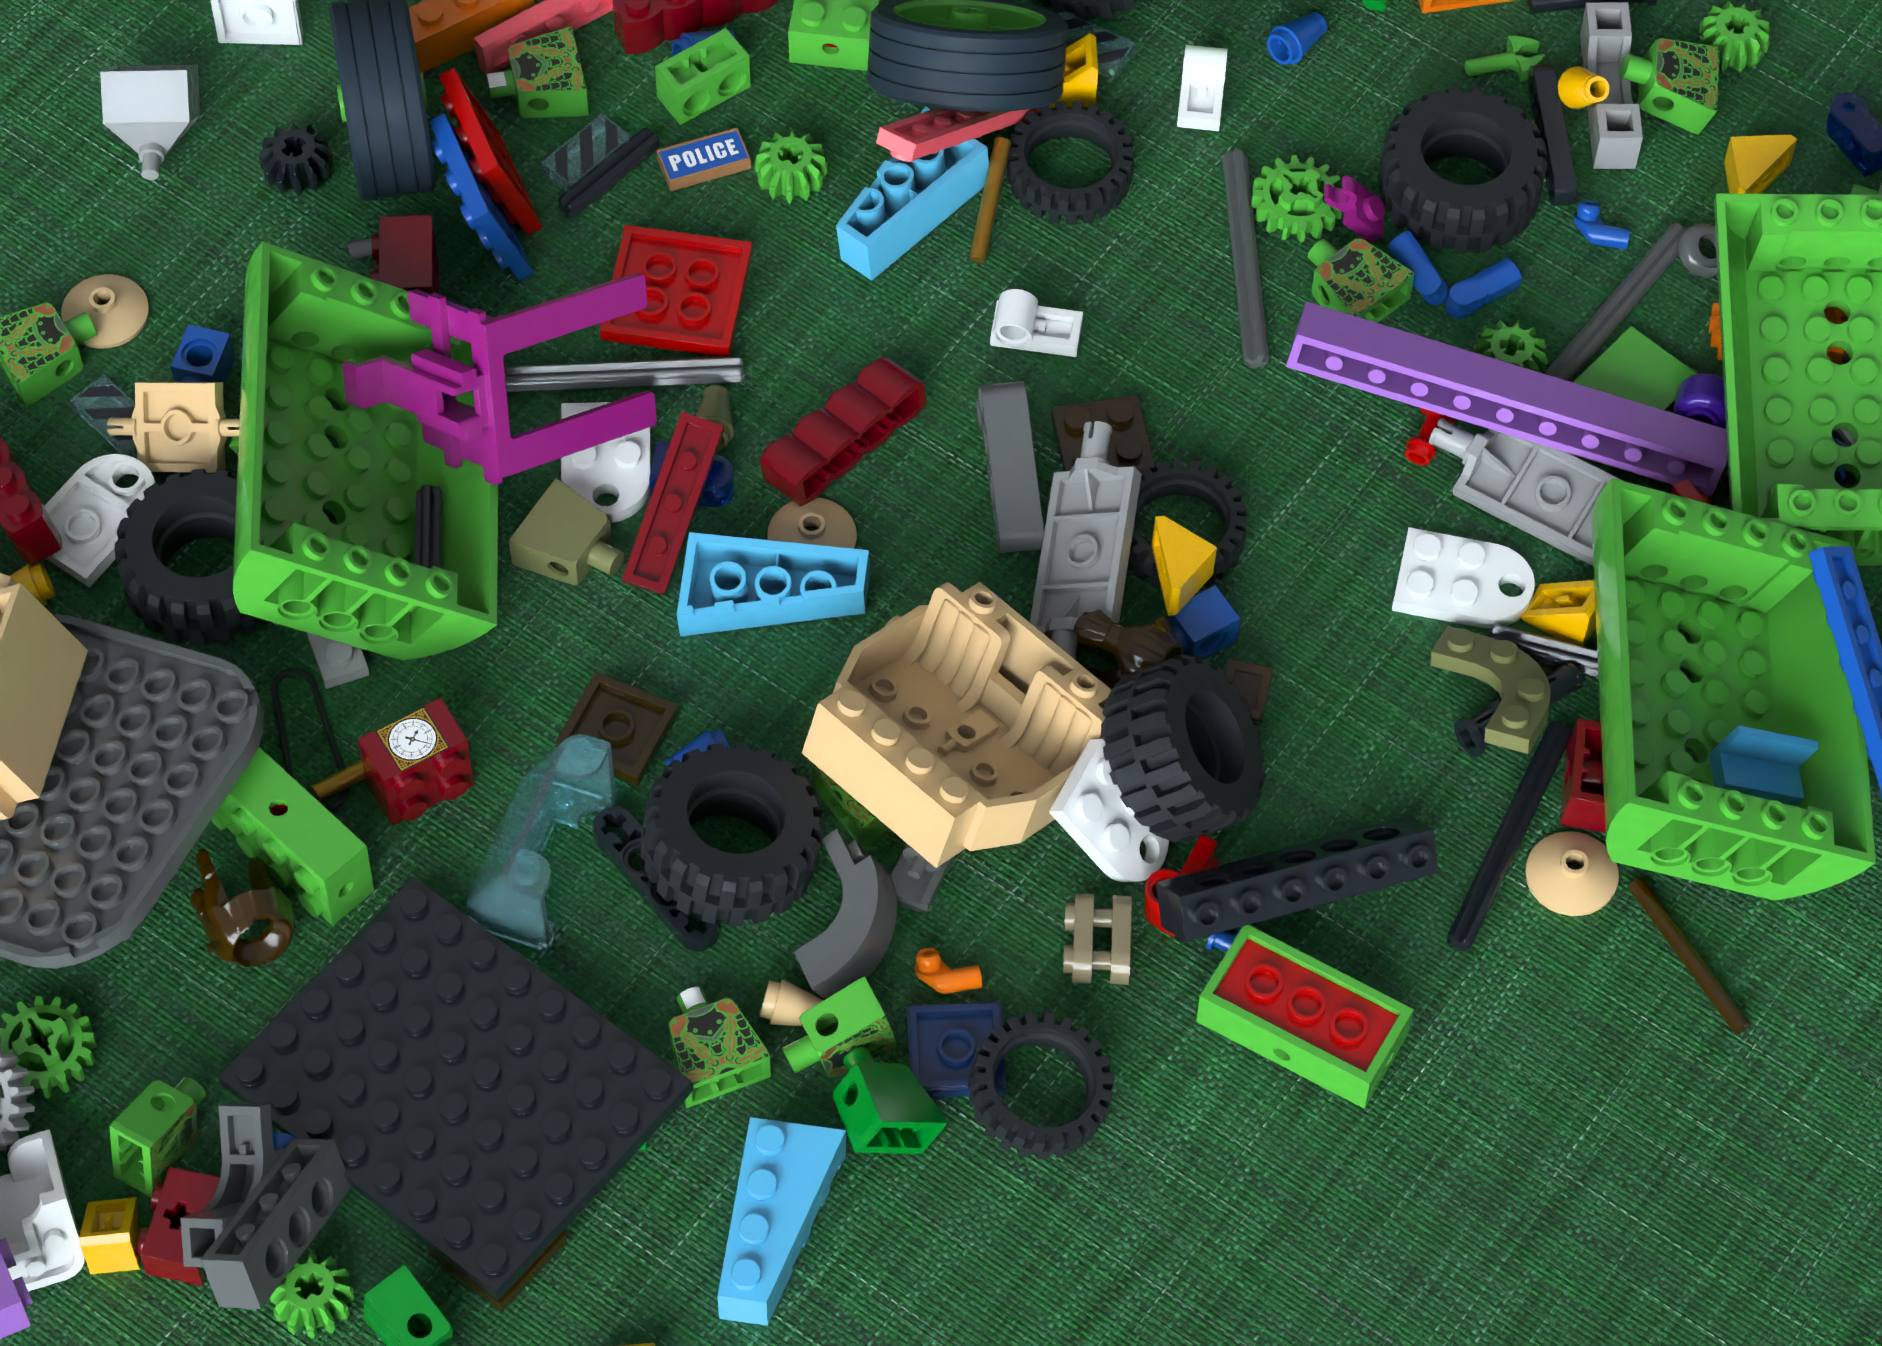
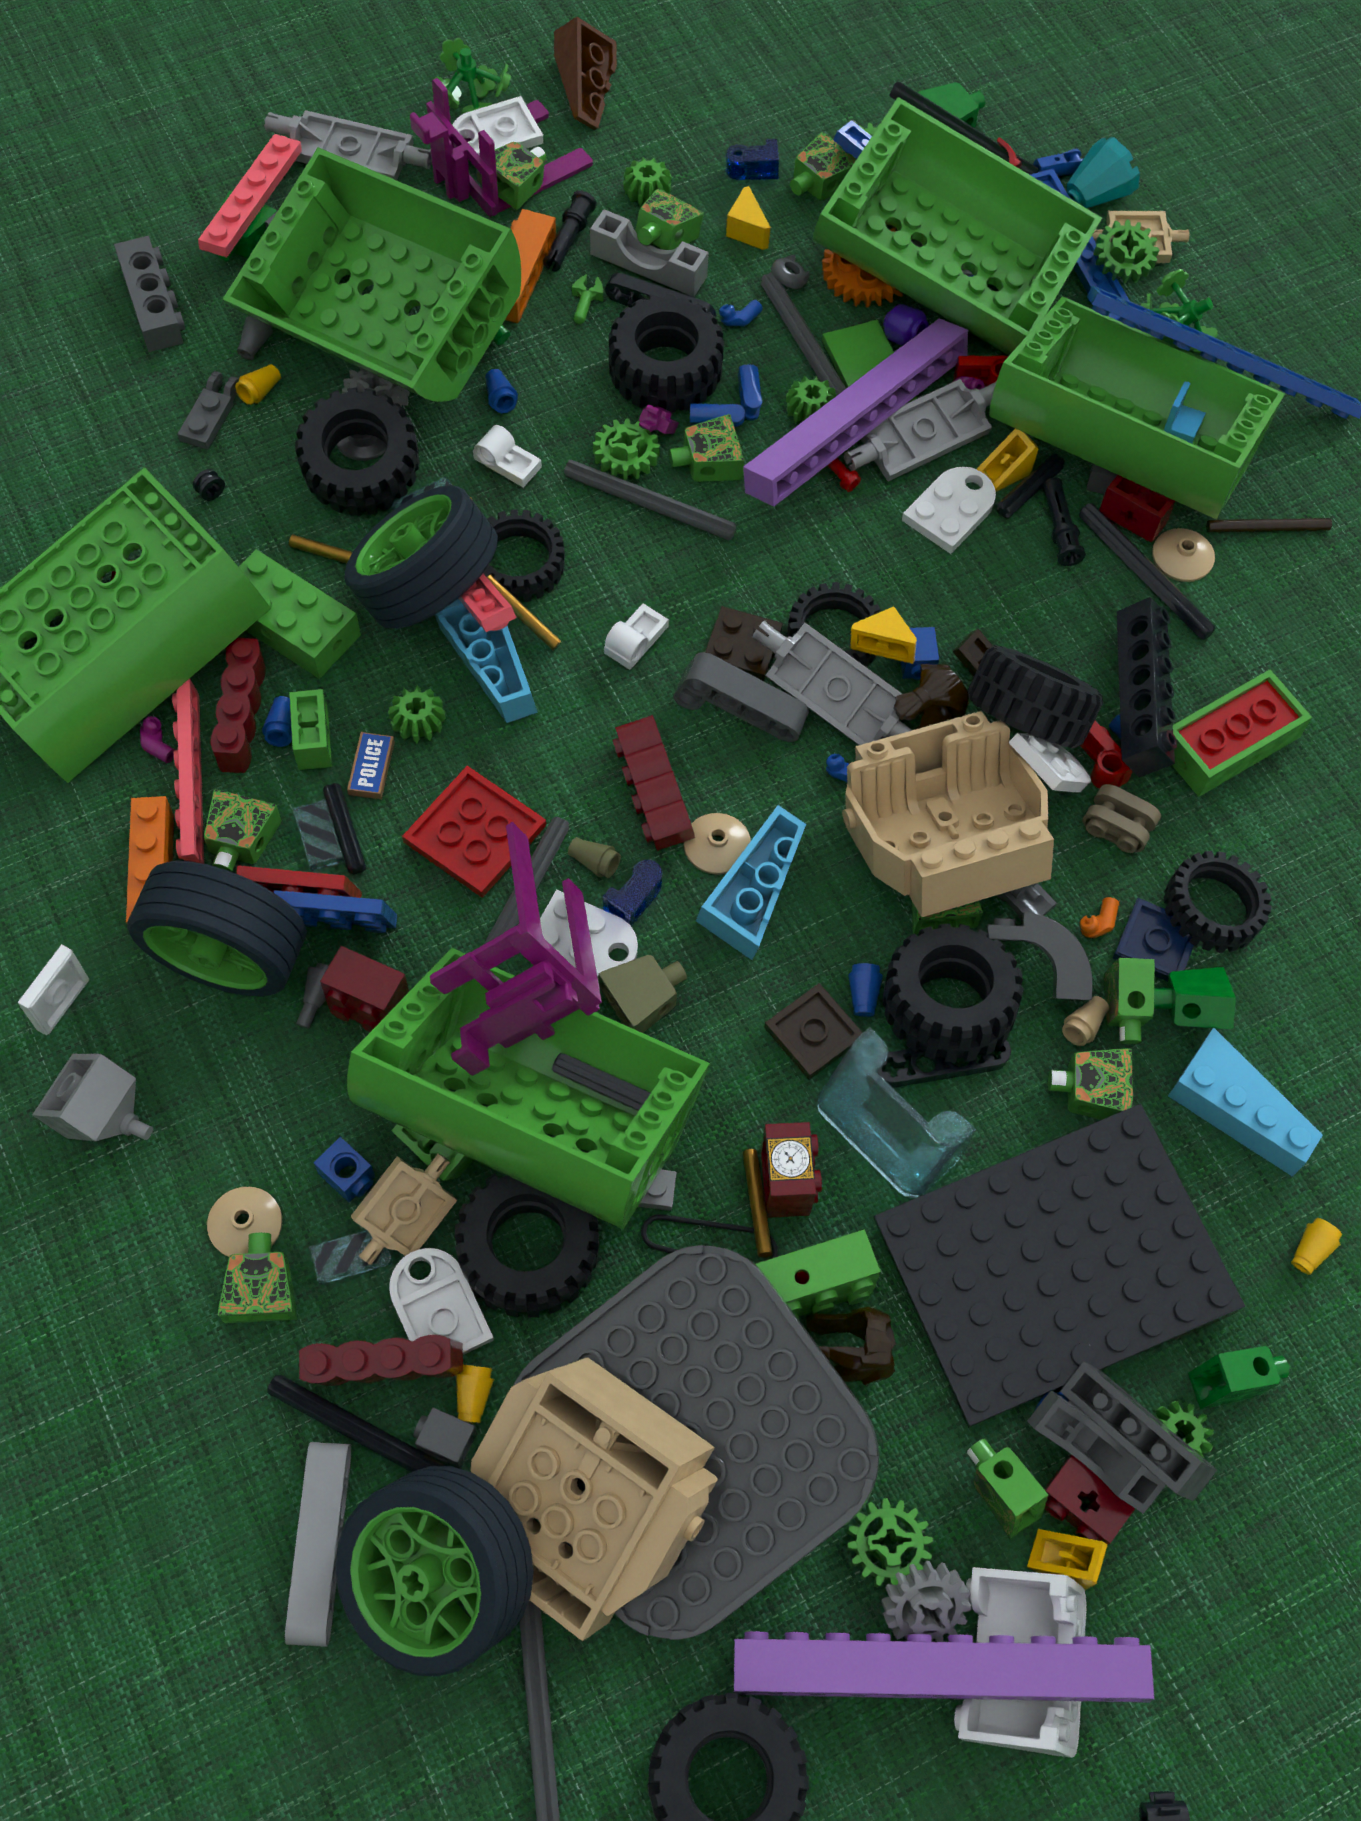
camera: 65 degrees left, 5 degrees up
(296, 159) = (214, 1025): black gear -> none
(673, 504) = (663, 908): dark red plate -> none
(1511, 673) = (1052, 508): olive plate -> none
(1581, 88) = (650, 262): yellow cone -> none

